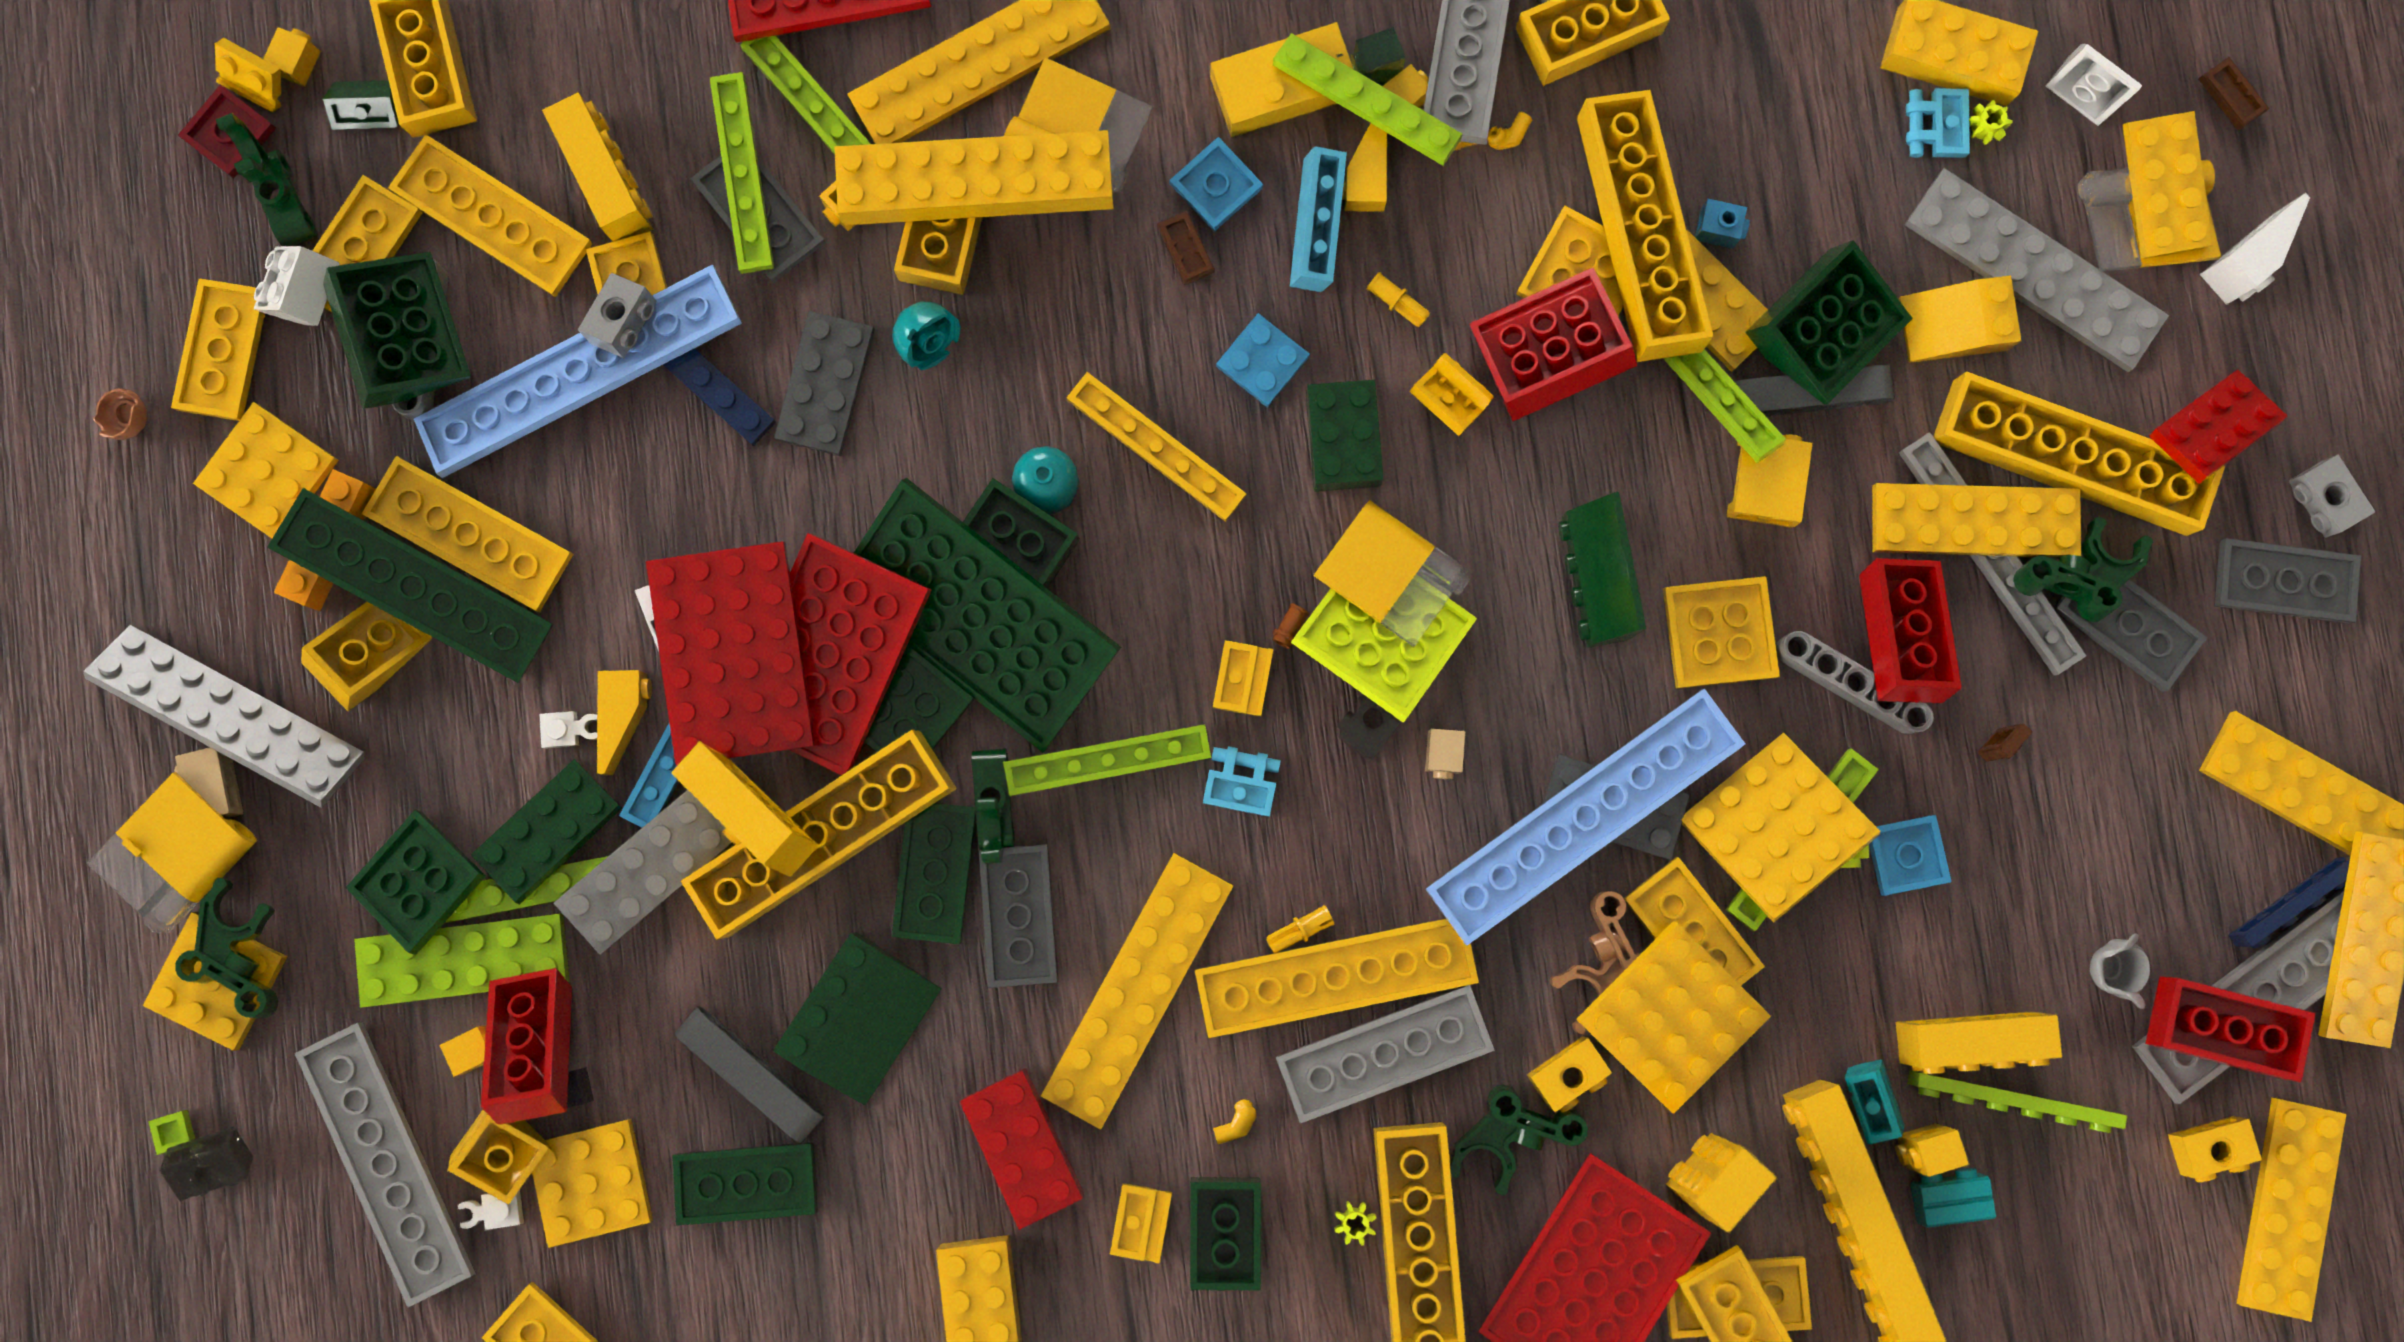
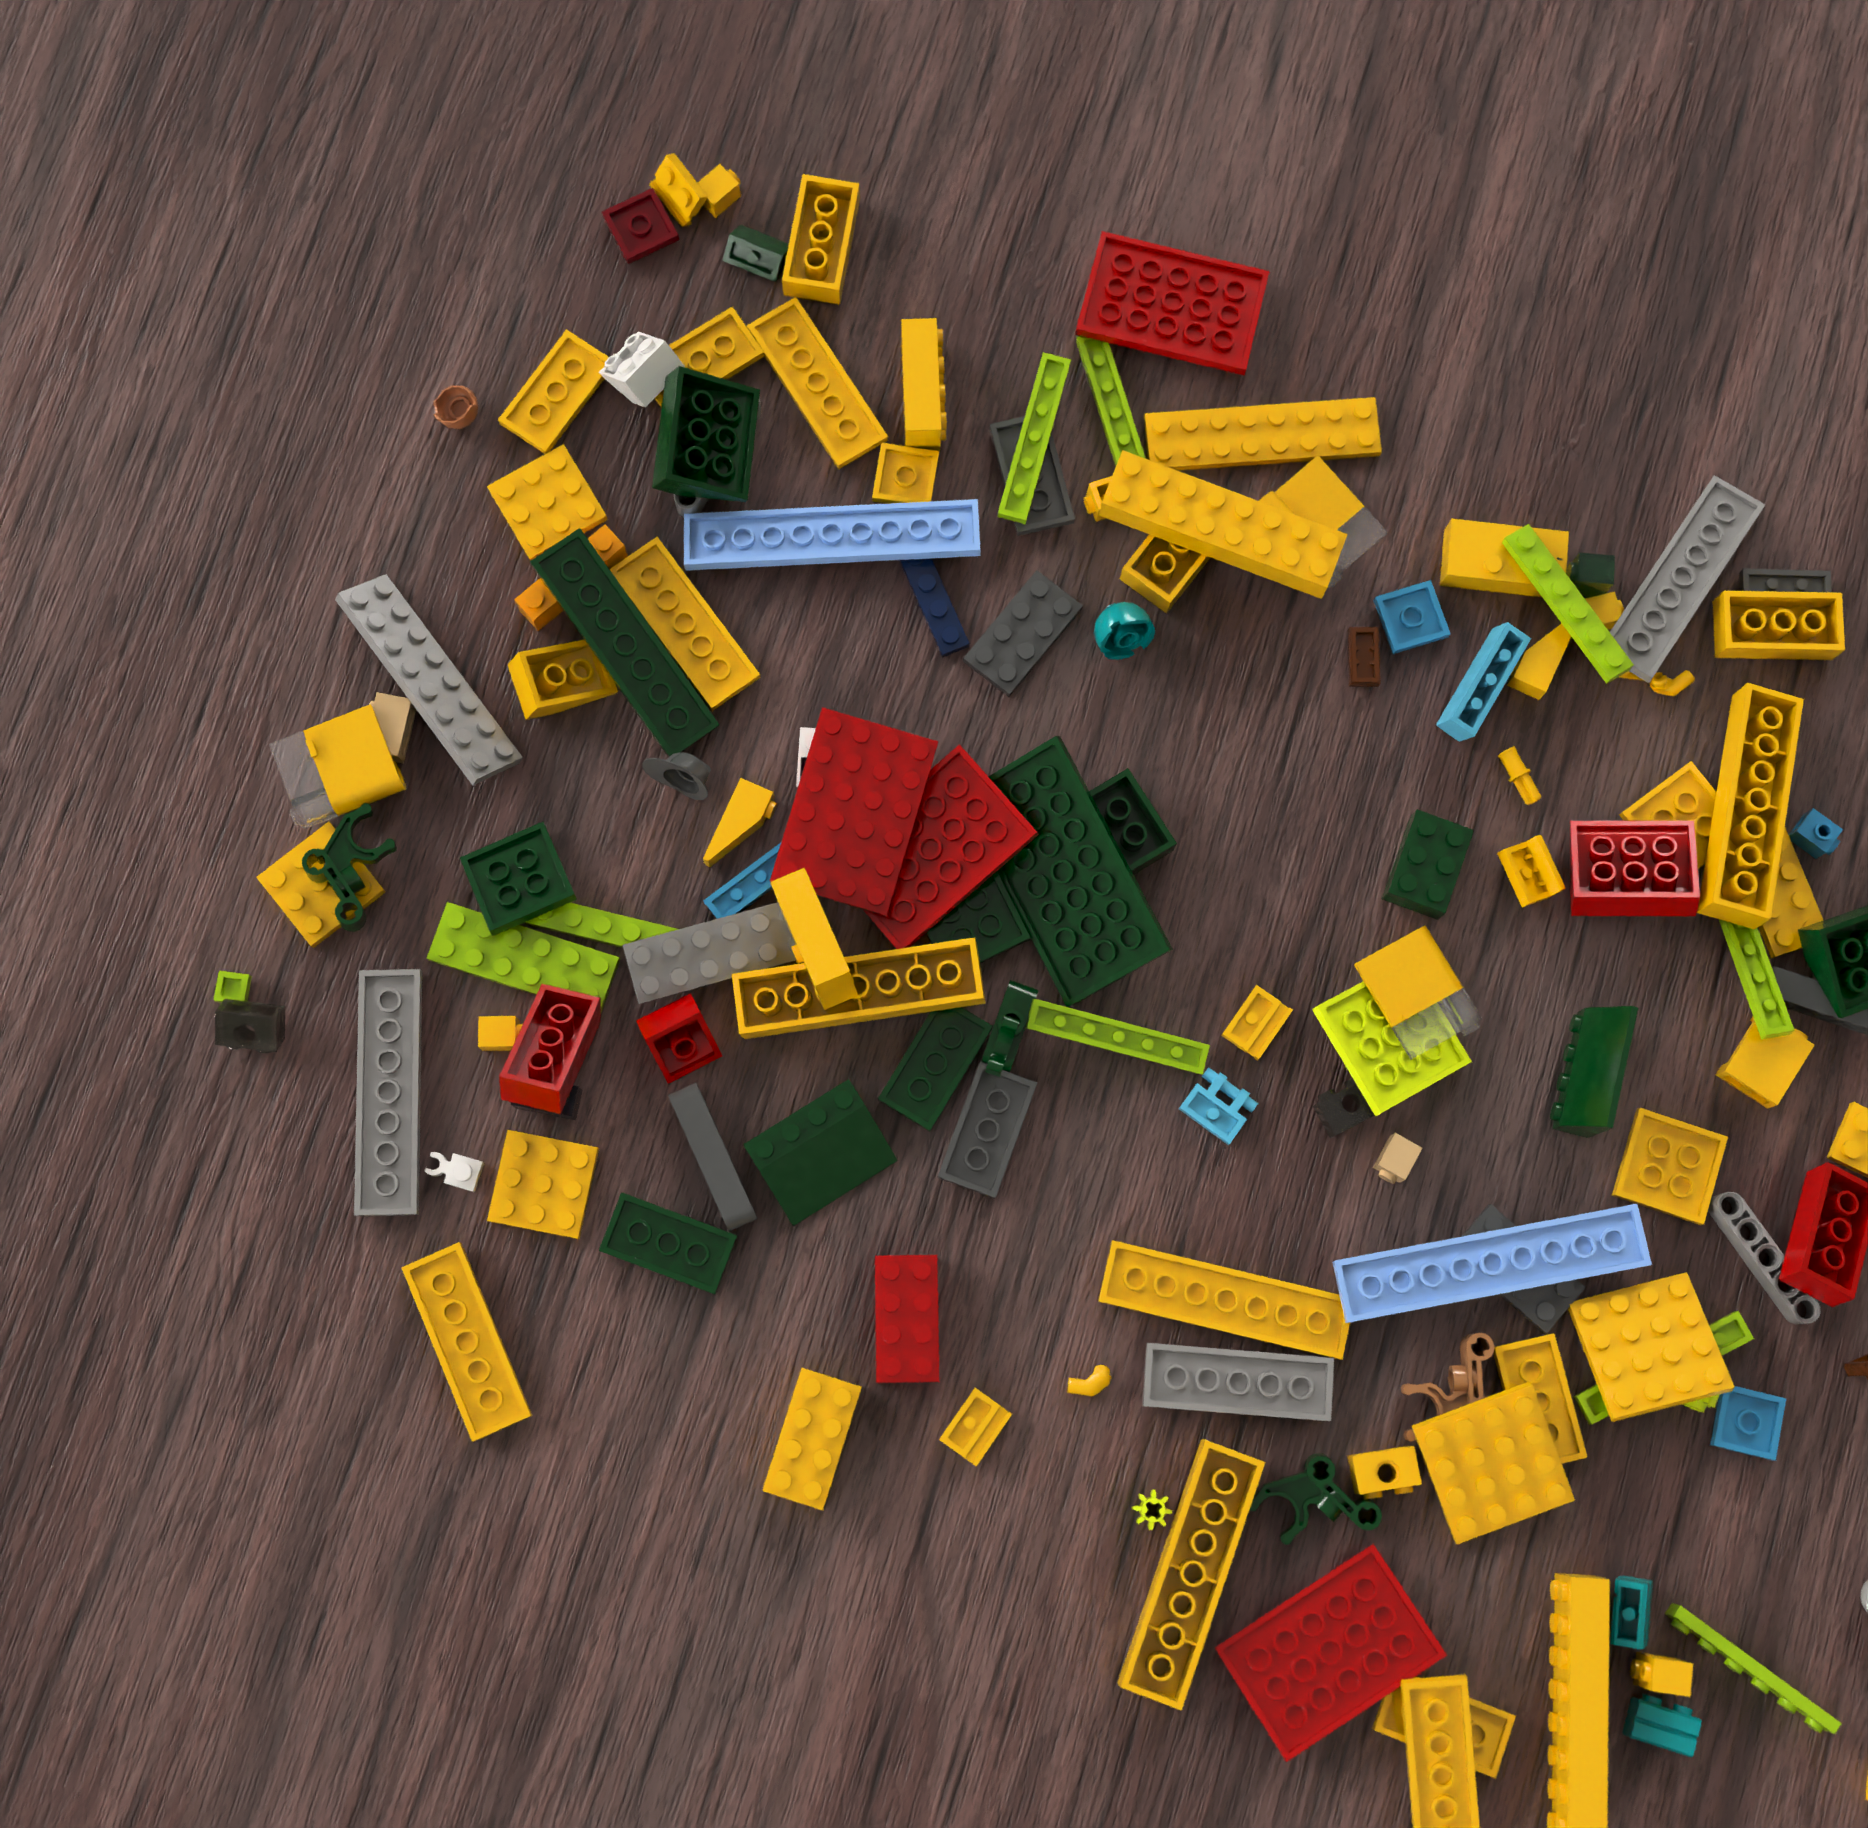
camera: 20 degrees right, 5 degrees down
(267, 173) = (658, 273): dark green piece -> none
(497, 1156) = (484, 1125): yellow slope -> none
(534, 691) = (680, 772): none -> dark grey piece
(546, 831) = (639, 886): dark green plate -> none
(564, 729) = (689, 811): white plate -> none
(617, 298) = (893, 492): light grey brick -> none
(659, 969) = (679, 1038): none -> red slope
(1046, 478) = (1169, 788): teal cylinder -> none
(1137, 991) = (1056, 1236): yellow plate -> none
(1156, 446) = (1269, 804): yellow plate -> none
(1225, 1233) = (1042, 1466): dark green brick -> none
(1262, 360) = (1386, 774): dark azure plate -> none
(1290, 626) = (1314, 997): dark orange pin -> none
(1300, 929) = (1213, 1248): yellow axle -> none
(1720, 1180) = (1474, 1611): yellow brick -> none
(1978, 1040) = (1738, 1599): yellow brick -> none

